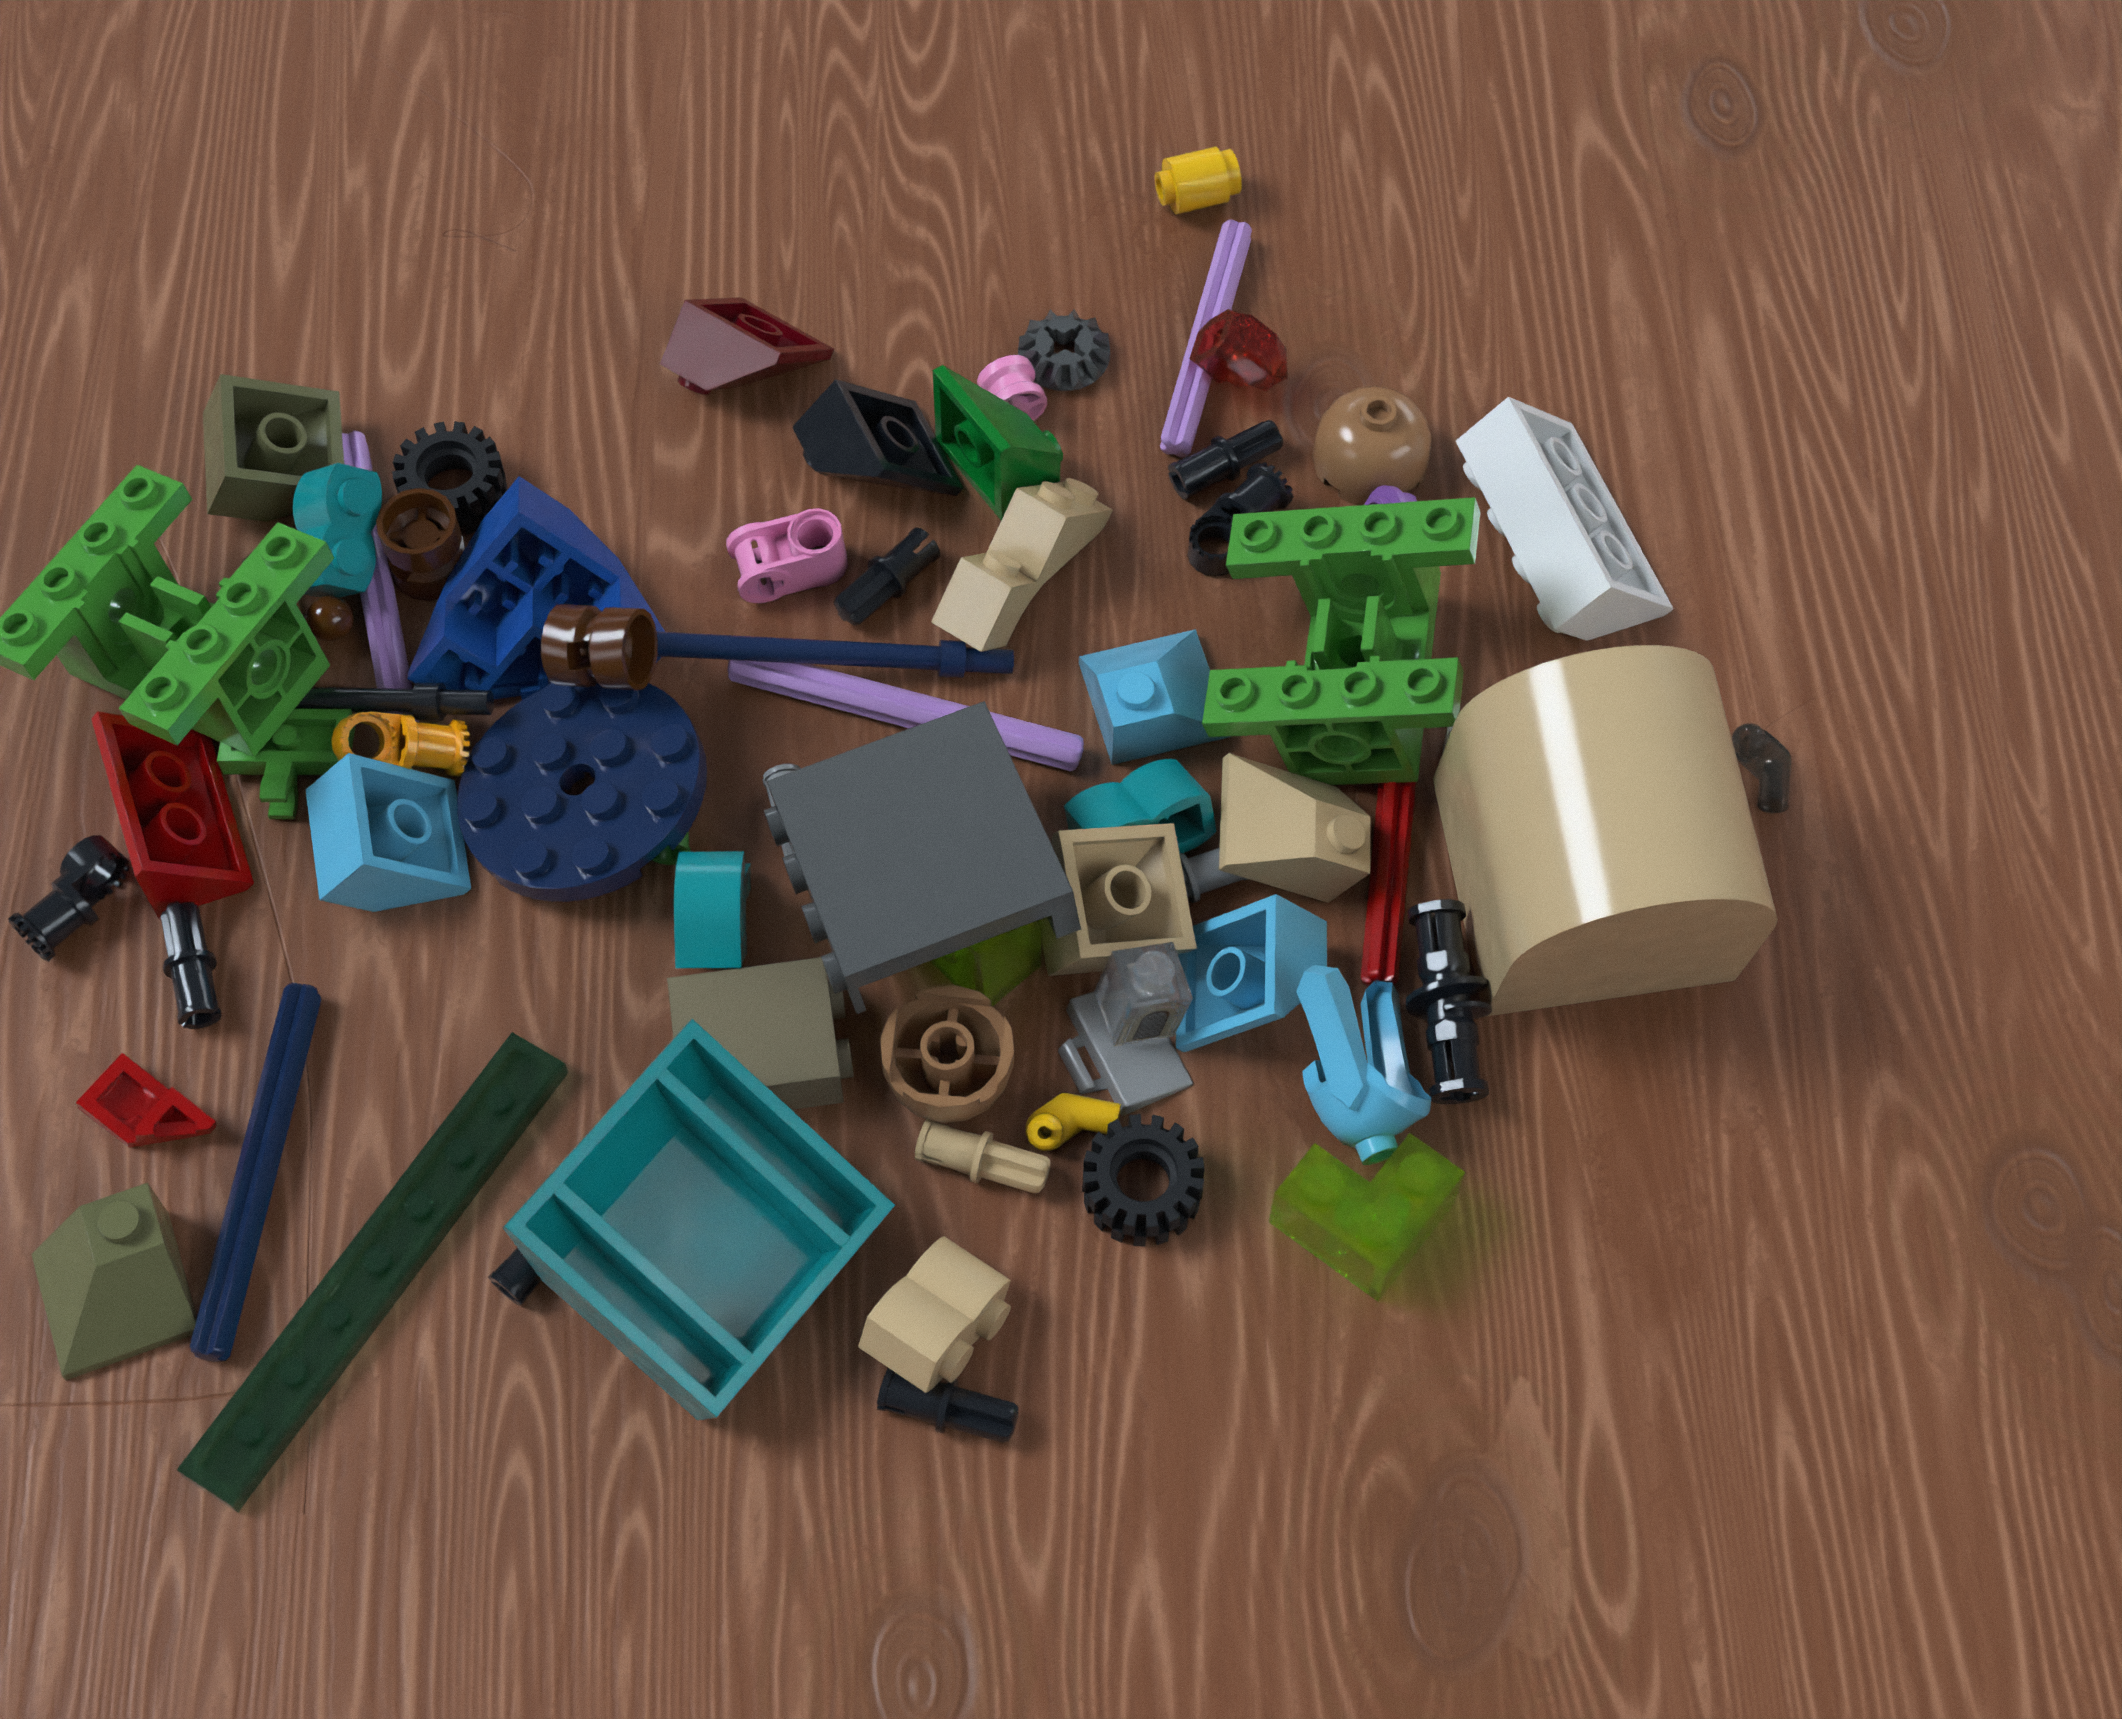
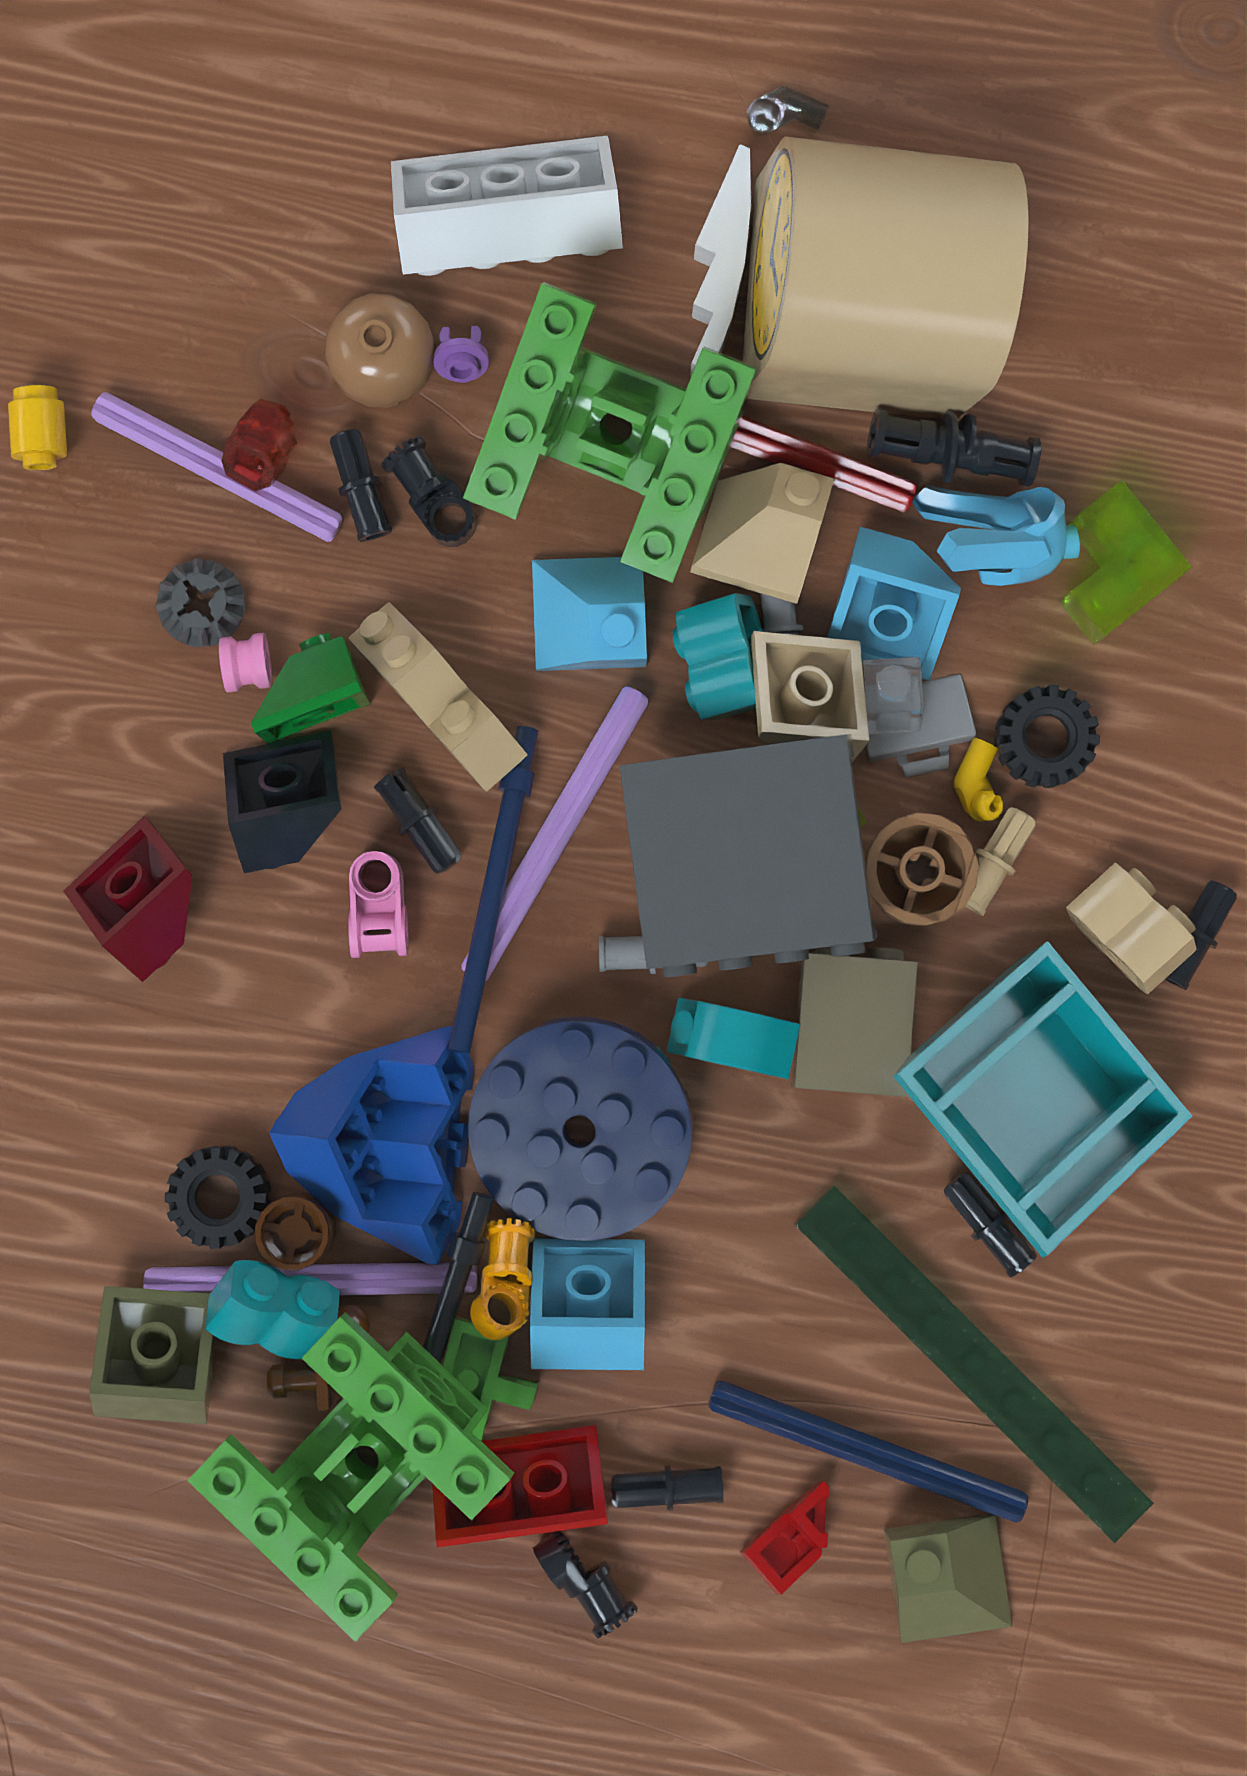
camera: 80 degrees left, 25 degrees up
(599, 647) = (475, 1085): reddish brown wheel -> none

